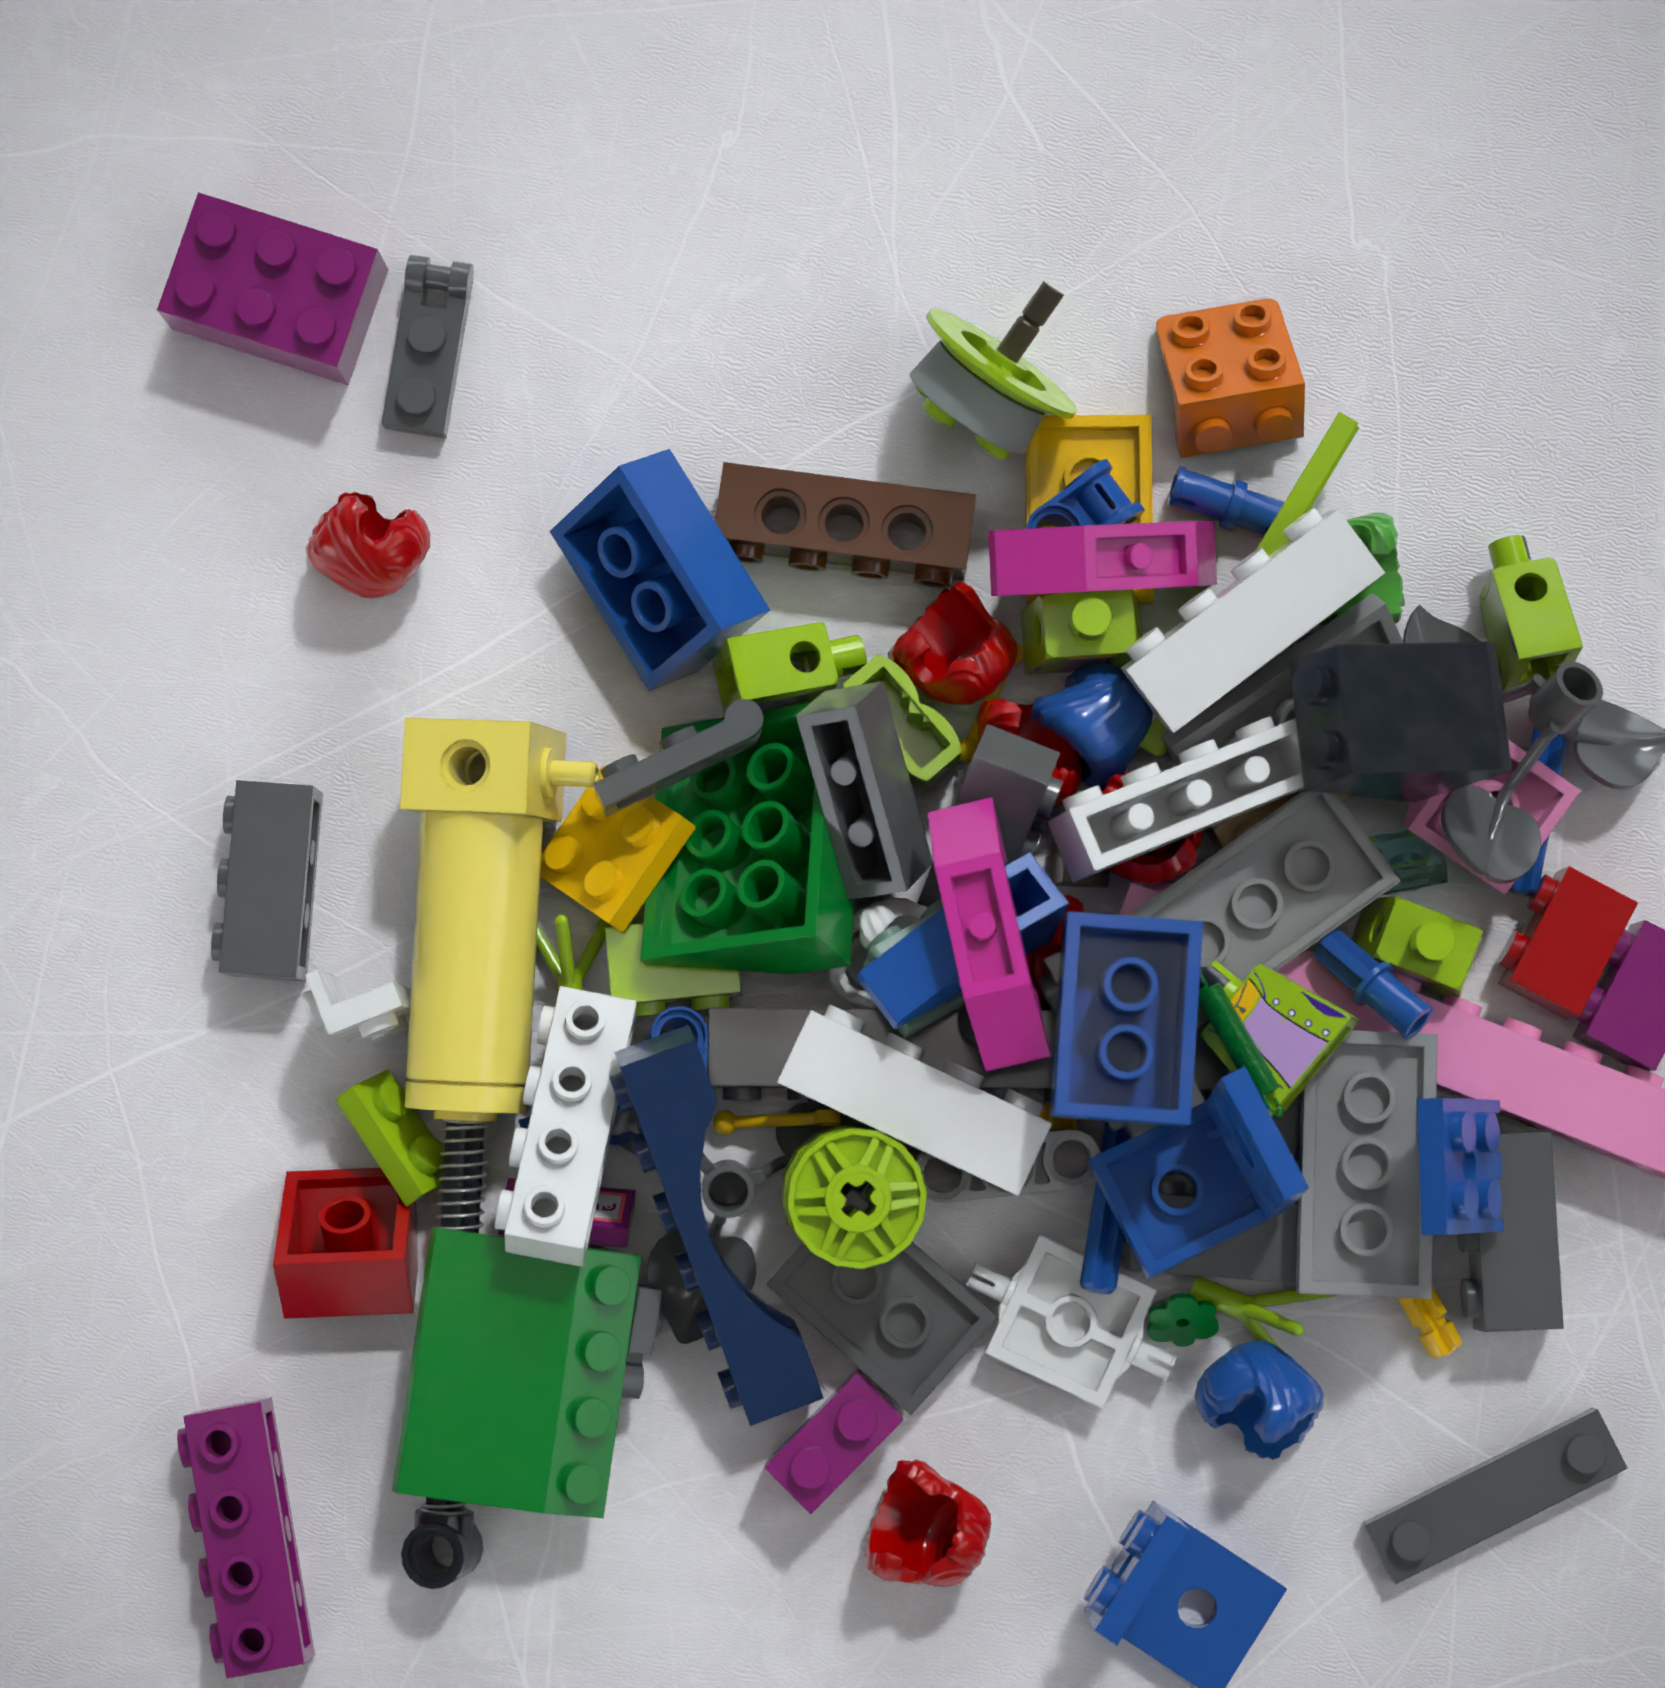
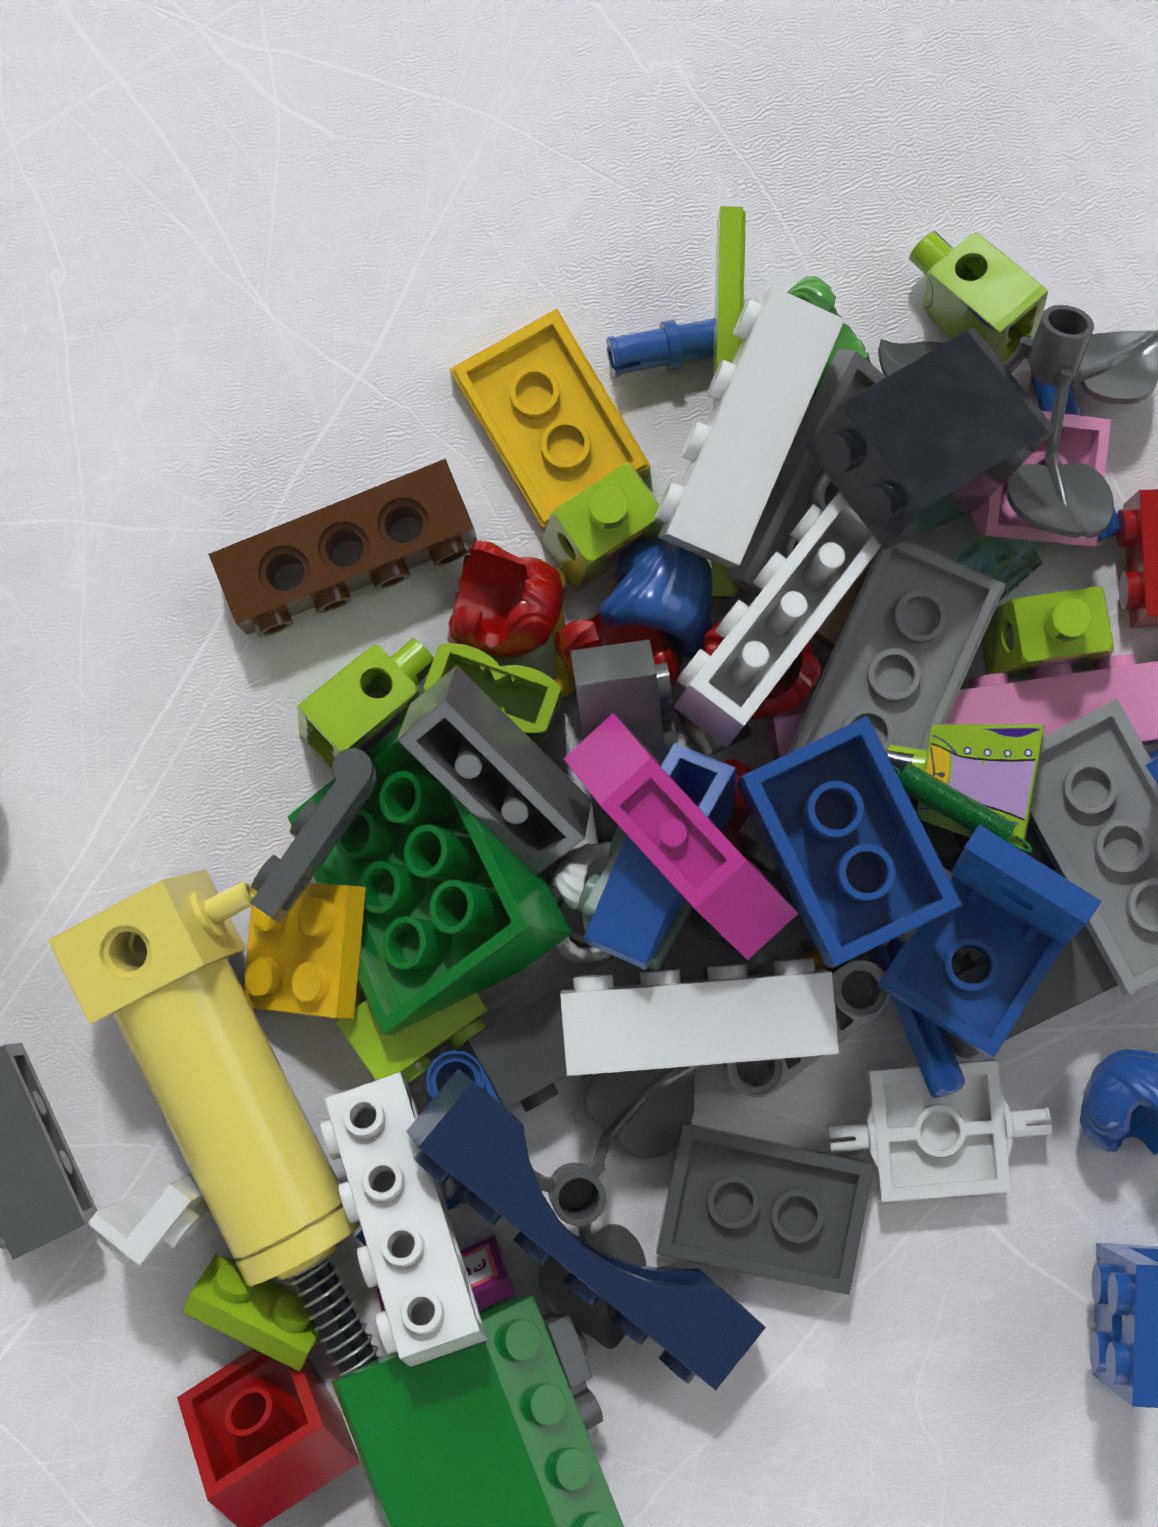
camera: 30 degrees left, 0 degrees up
(563, 966) = (315, 1072): lime plant -> none
(658, 569) = (203, 678): blue brick -> none
(726, 1121) = (540, 1128): yellow hinge -> none
(814, 1199) = (672, 1102): lime wheel -> none
(833, 1441) = (795, 1359): magenta brick -> none
(926, 1529) = (921, 1390): red hair -> none
(988, 381) = (399, 355): piece -> none
(1088, 500) = (549, 420): blue piece -> none
(1102, 557) = (584, 450): dark pink slope -> none
(1182, 1320) = (1033, 1072): green plant -> none
(1232, 377) = (609, 237): orange bracket -> none
(1249, 1307) = (1084, 1031): lime plant -> none
(1373, 984) = (1036, 686): blue axle -> none

